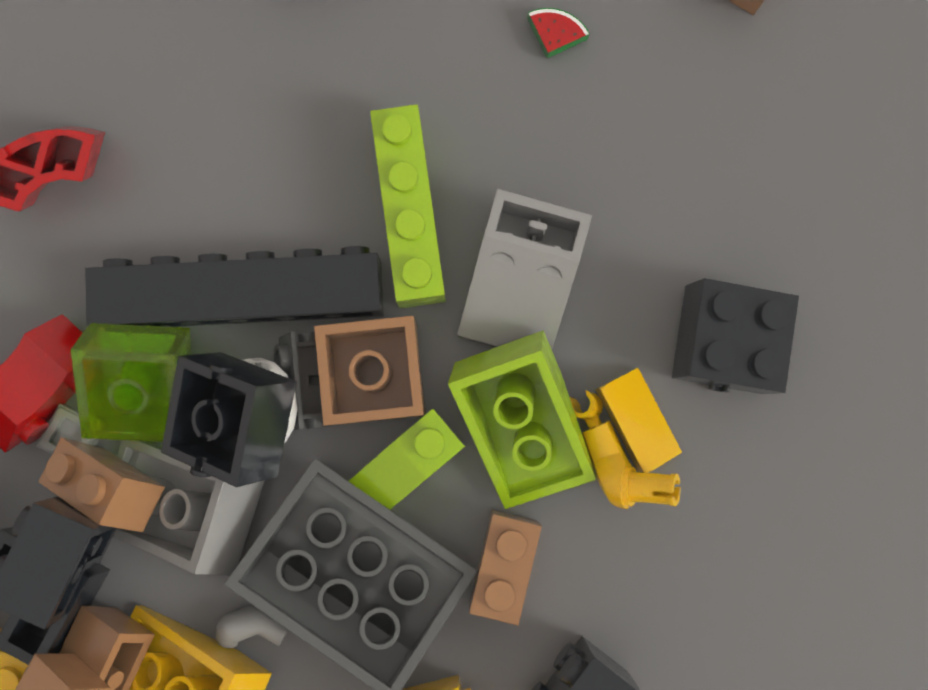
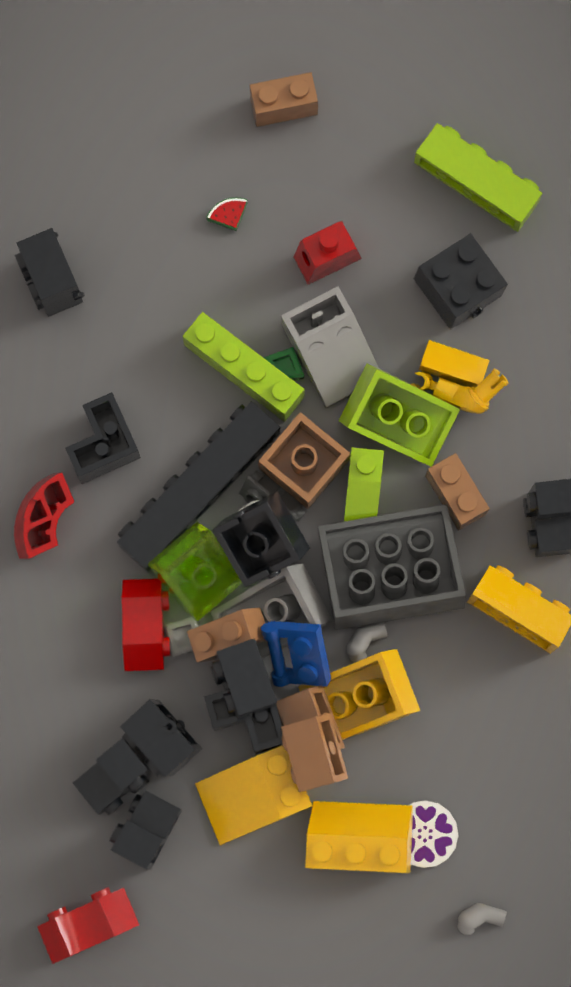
camera: 45 degrees left, 5 degrees down
(161, 585) = (306, 653): none -> blue plate
(189, 153) = (109, 447): none -> black brick
(458, 248) = (287, 363): none -> green tile
(619, 167) = (327, 252): none -> red torso
(865, 240) = (477, 176): none -> lime brick

